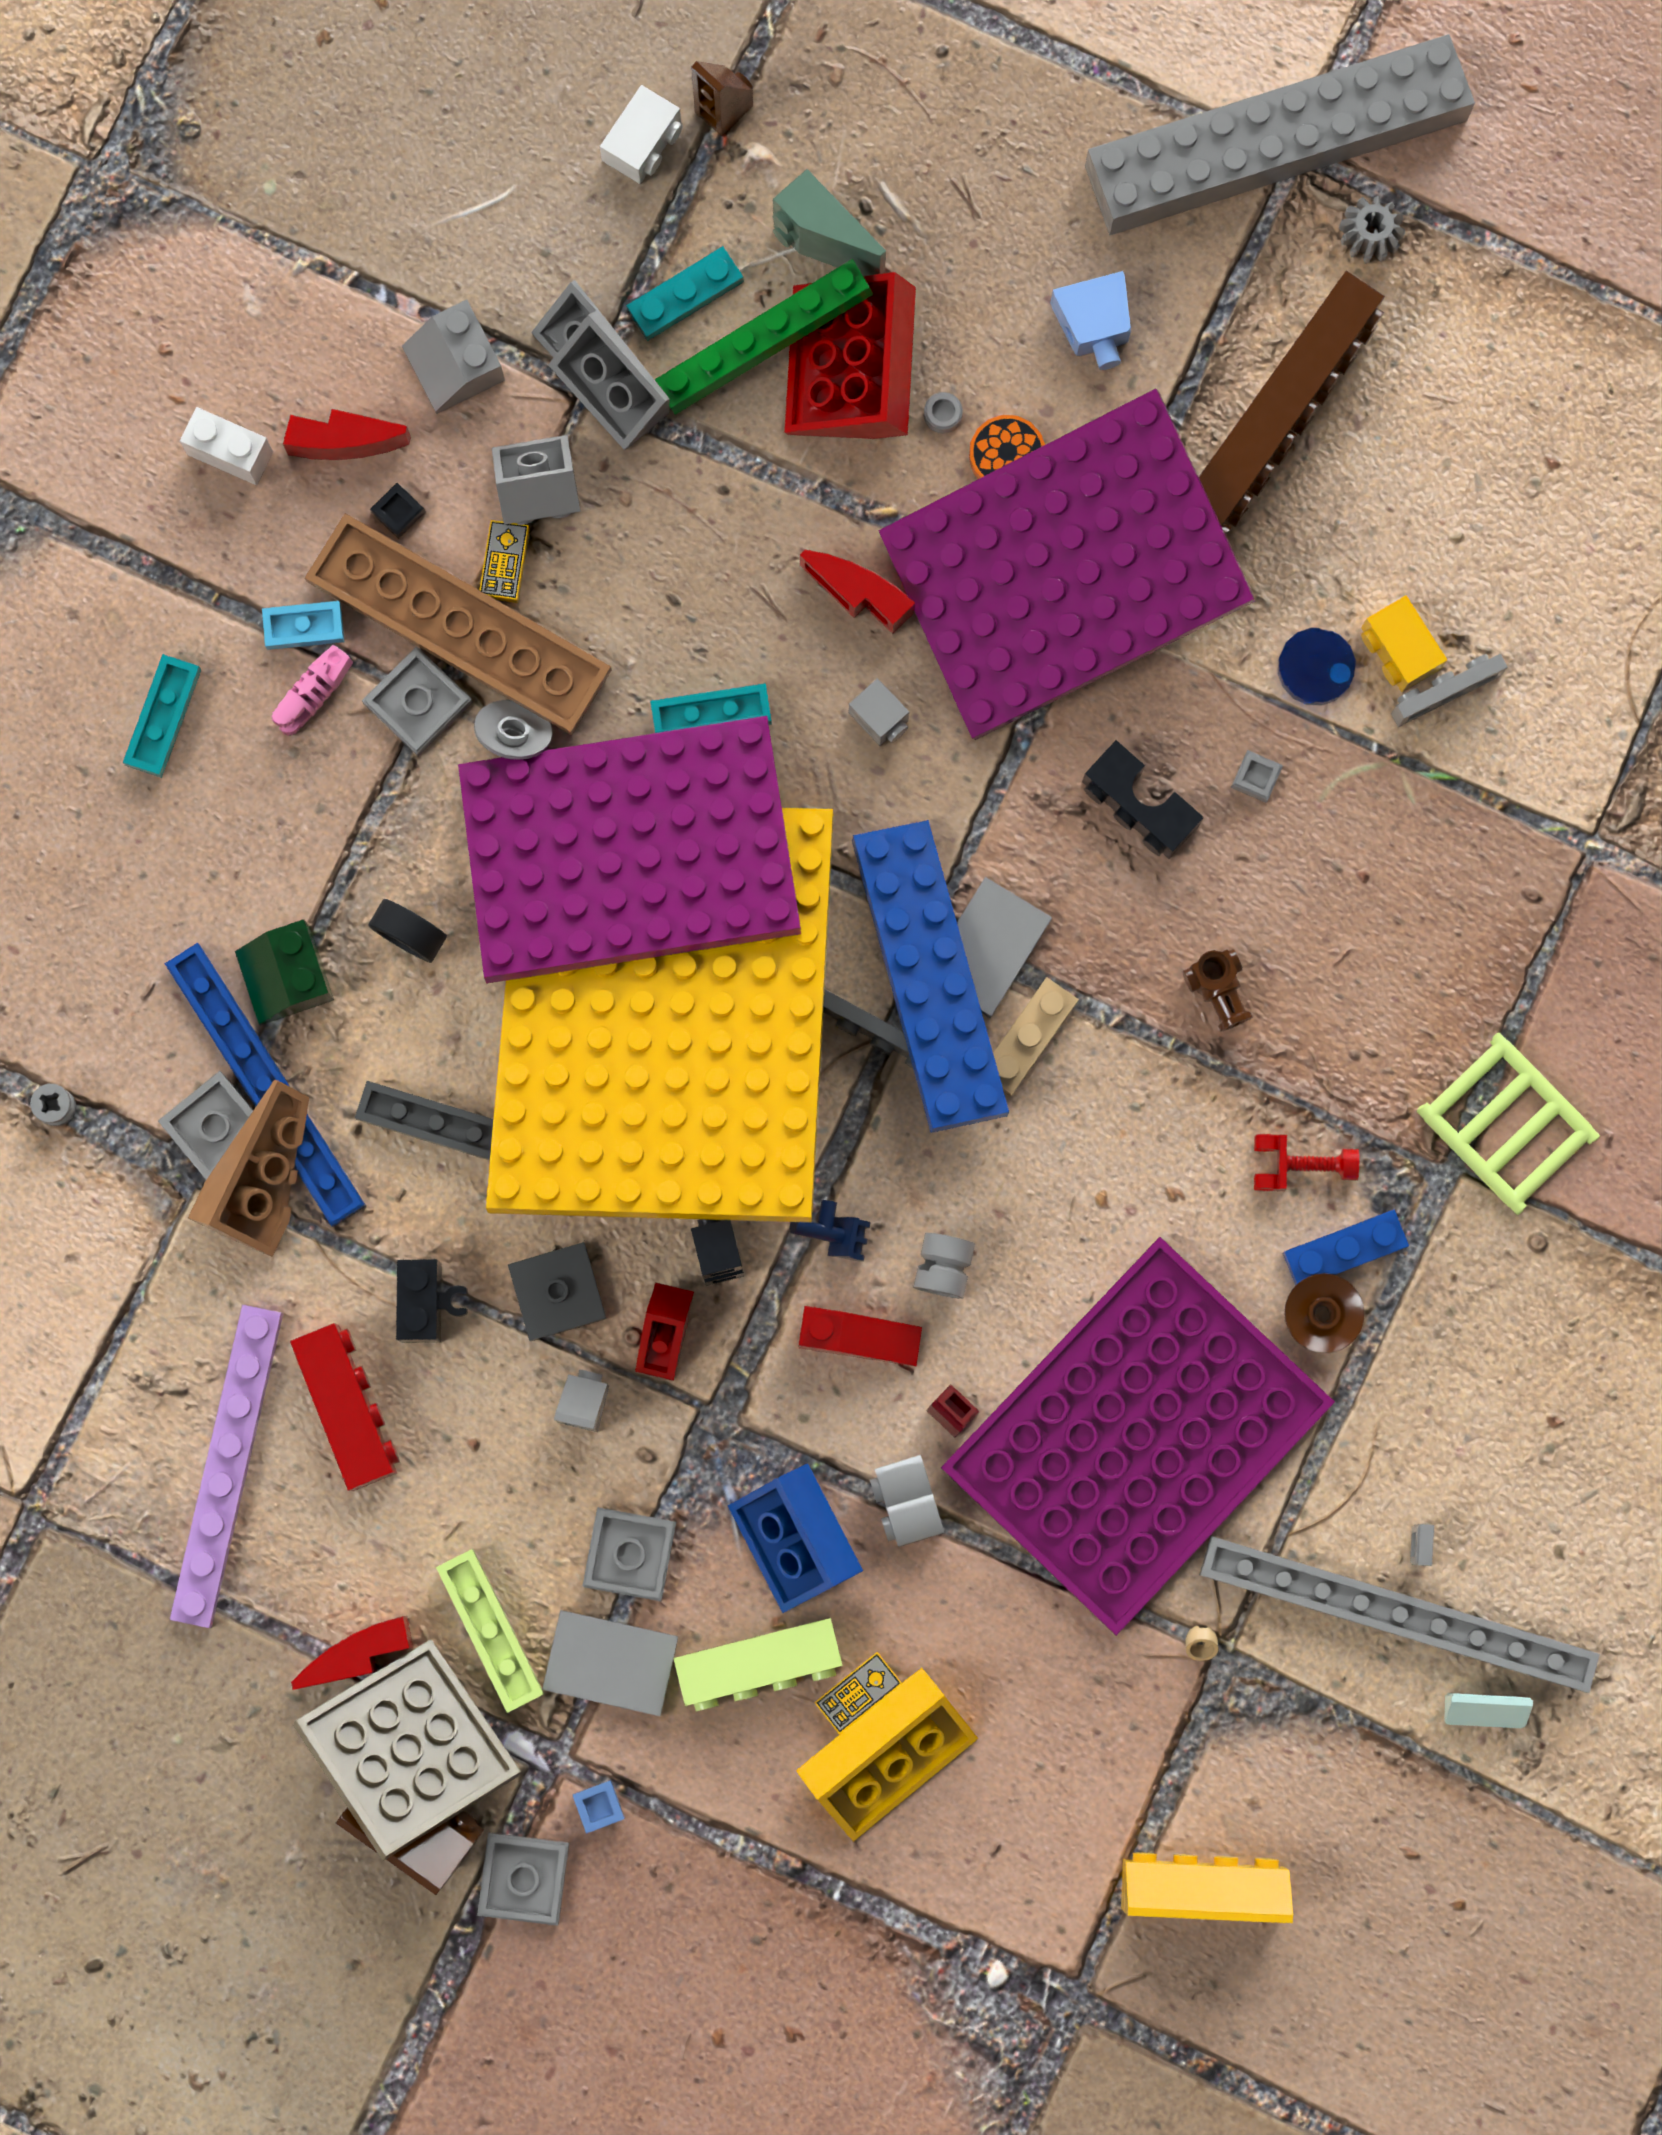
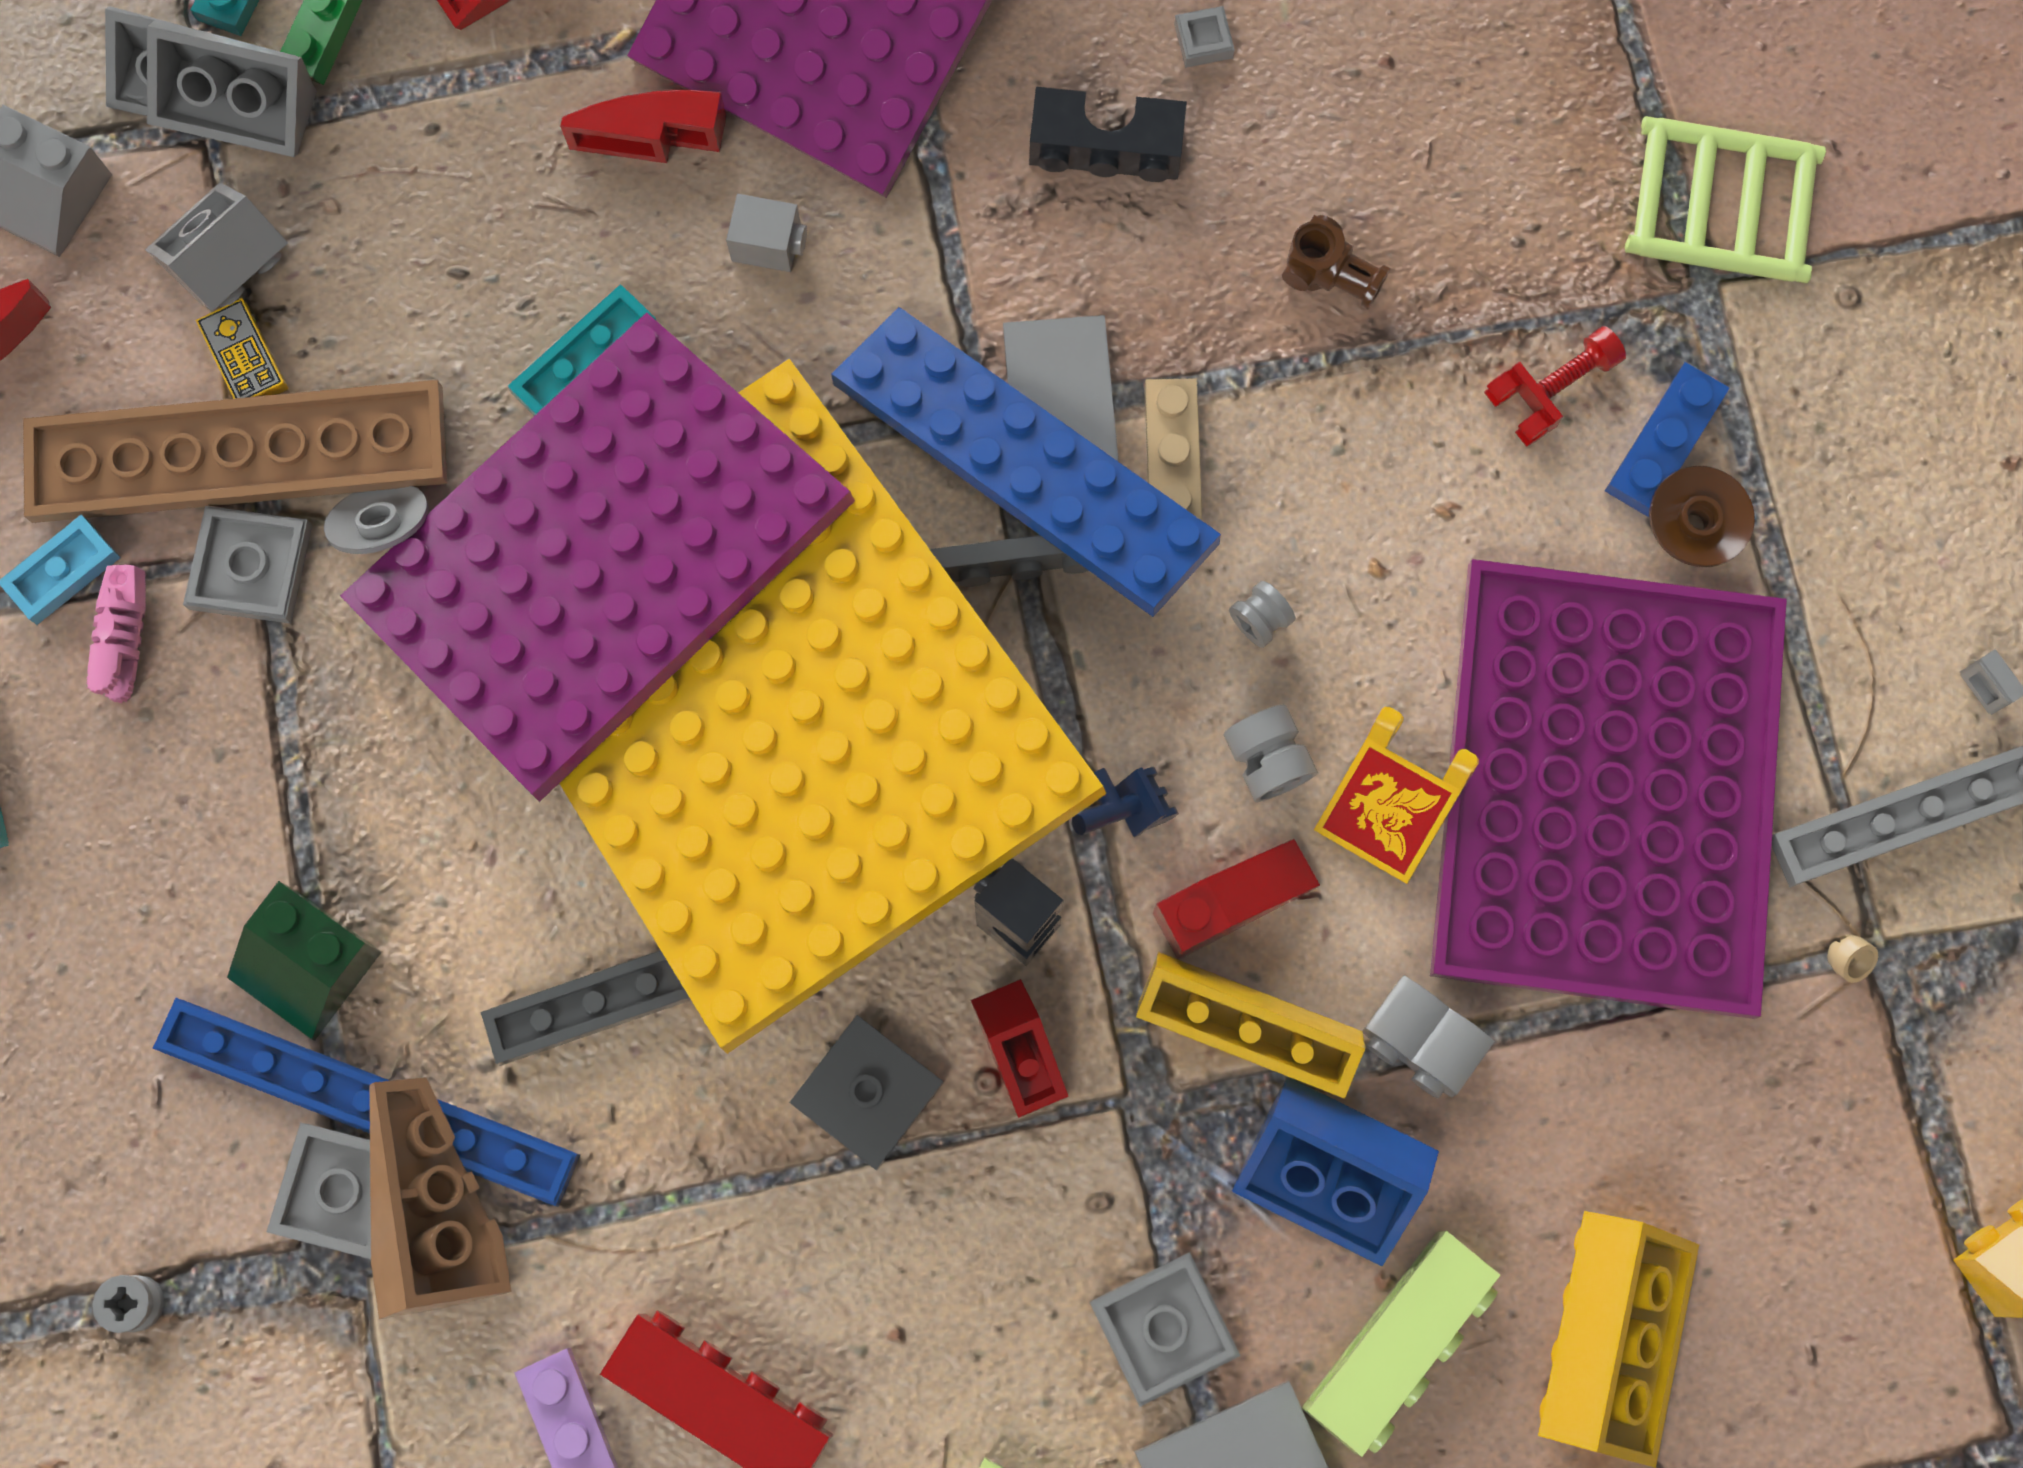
camera: 35 degrees left, 5 degrees down
(397, 510) = (84, 381): black tile -> none
(407, 930) = (408, 811): black tyre -> none
(422, 1300) = (721, 1215): black brick -> none
(582, 1401) = (987, 1192): light grey slope -> none
(808, 1416) = (1251, 1025): none -> yellow brick
(858, 1693) = (1533, 1293): tile -> none
(952, 1410) = (1396, 906): dark red slope -> none
(993, 1350) = (1390, 806): none -> flag
(1005, 1176) = (1262, 614): none -> light grey wheel

